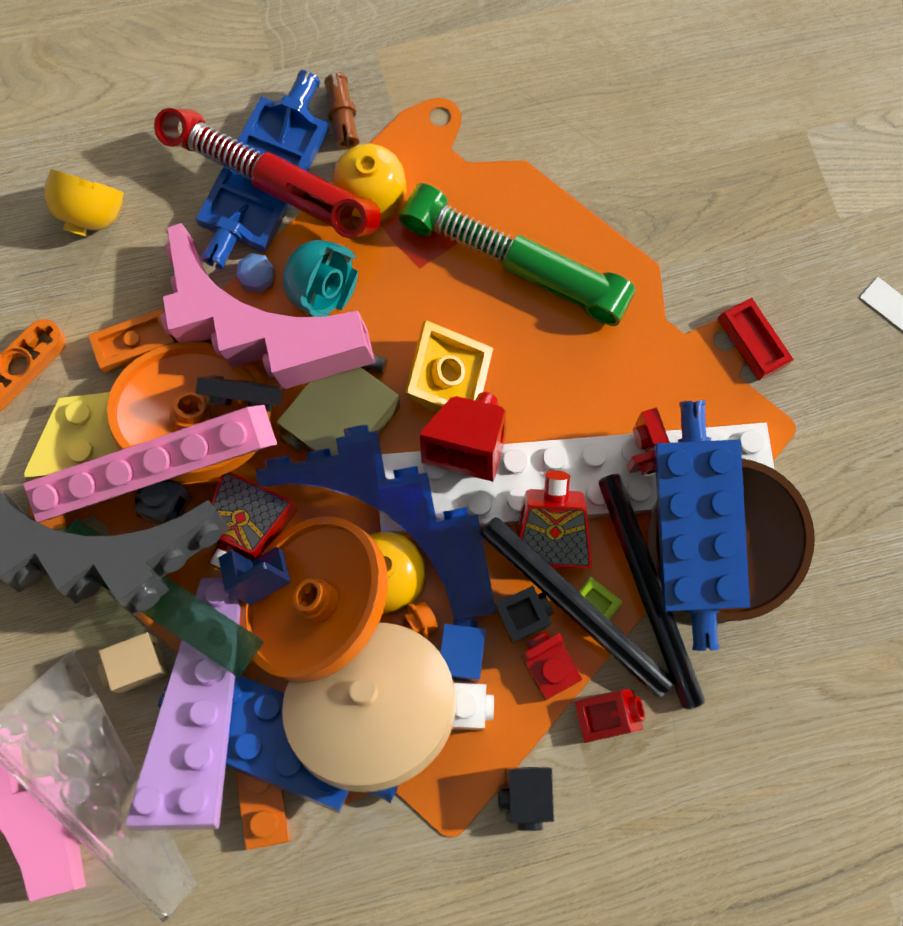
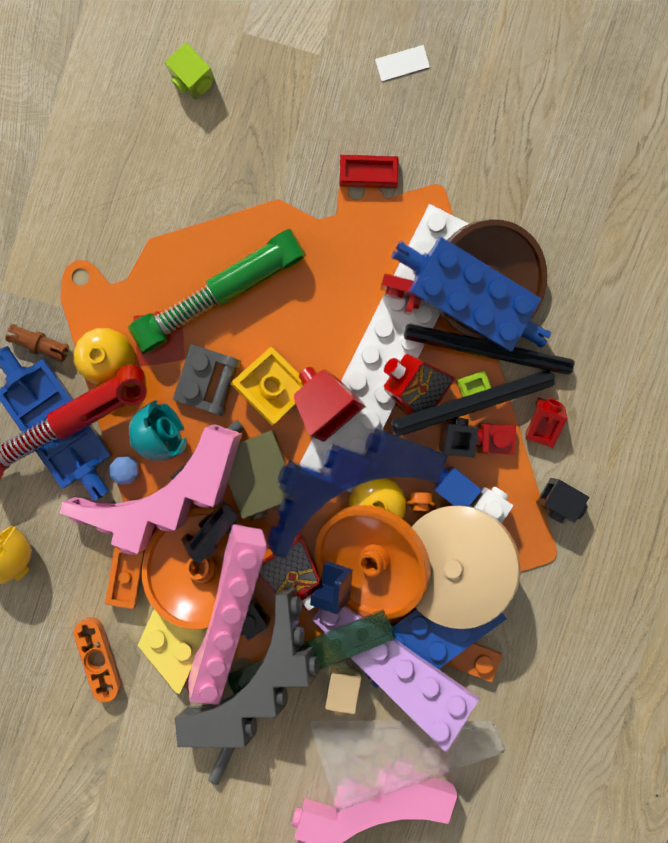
camera: 55 degrees left, 15 degrees up
(410, 290) = (197, 377): none -> dark grey plate
(727, 98) = (189, 71): none -> lime brick

